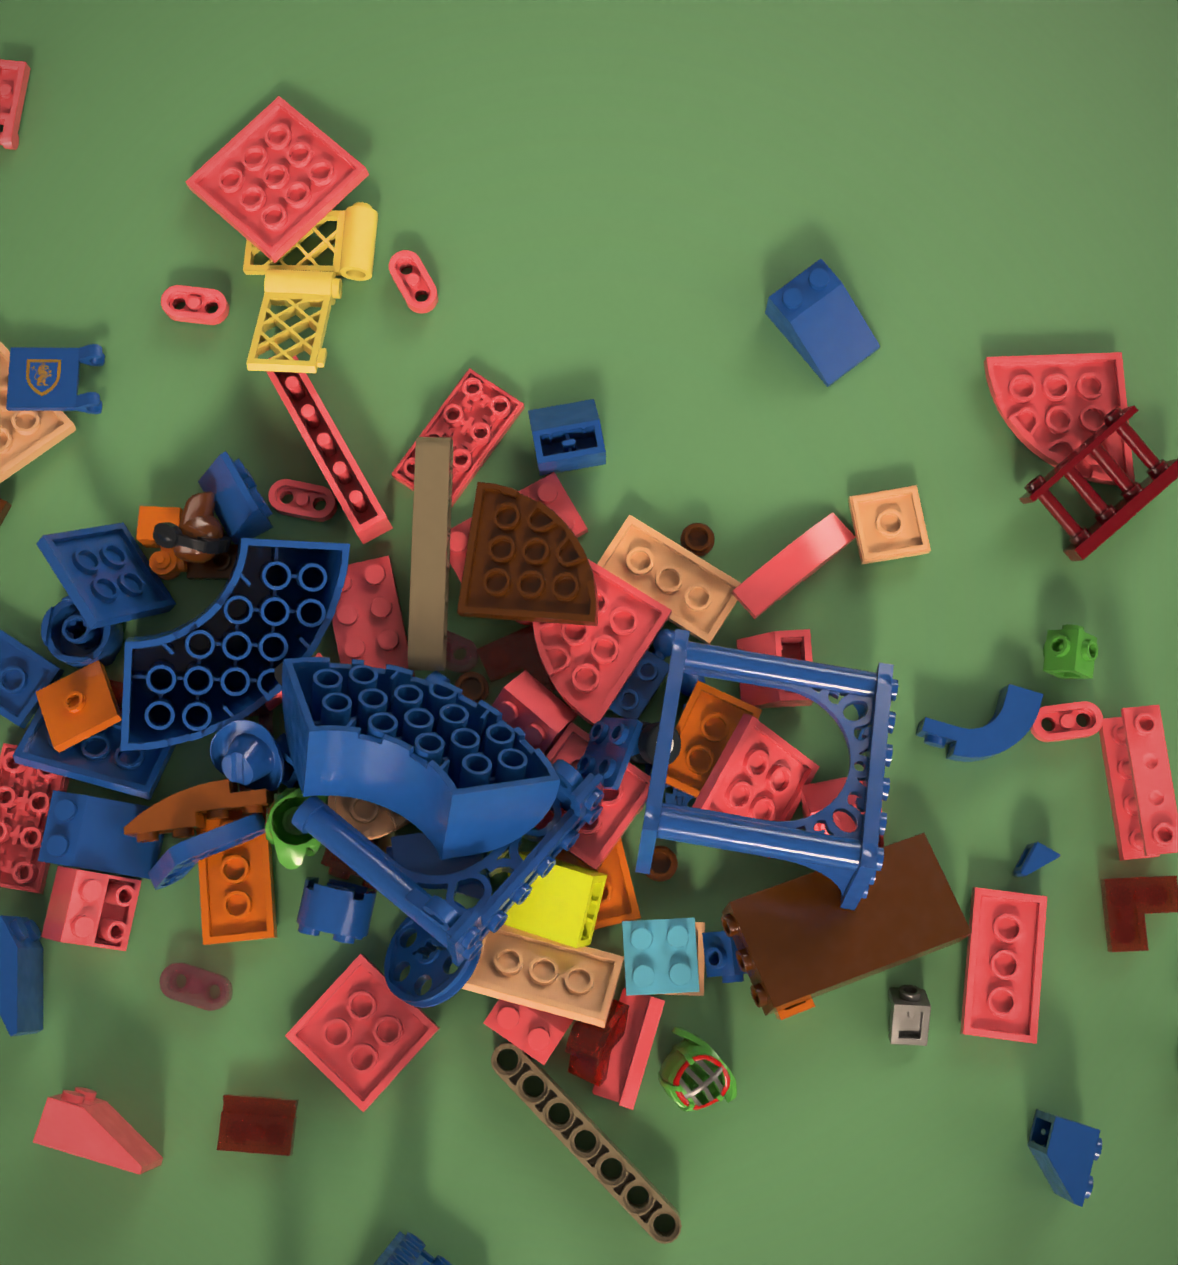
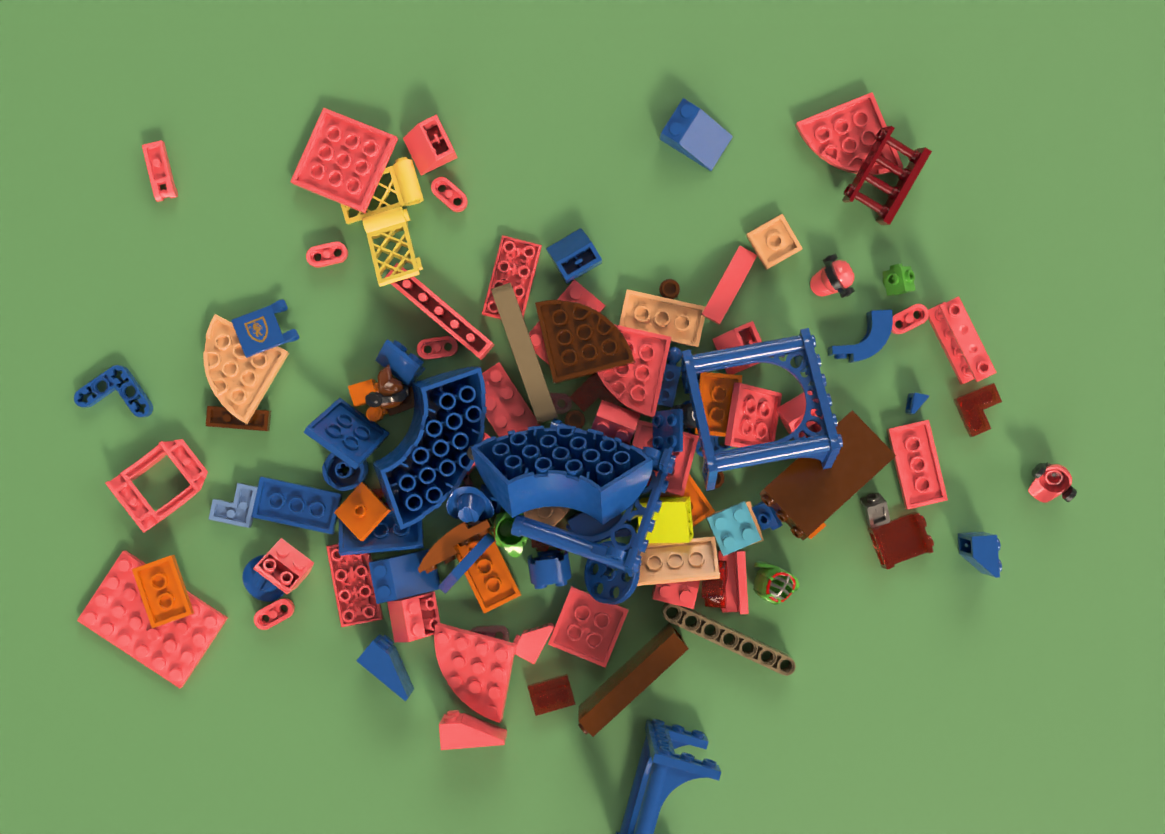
camera: 25 degrees left, 10 degrees up
(152, 1031) = (475, 668): none -> coral plate
(260, 1023) = (532, 642): none -> coral slope
(391, 1147) = (631, 680): none -> reddish brown brick
(412, 200) = (429, 145): none -> coral slope
(935, 1083) = (901, 539): none -> clear red panel
(965, 614) = (833, 278): none -> coral cap

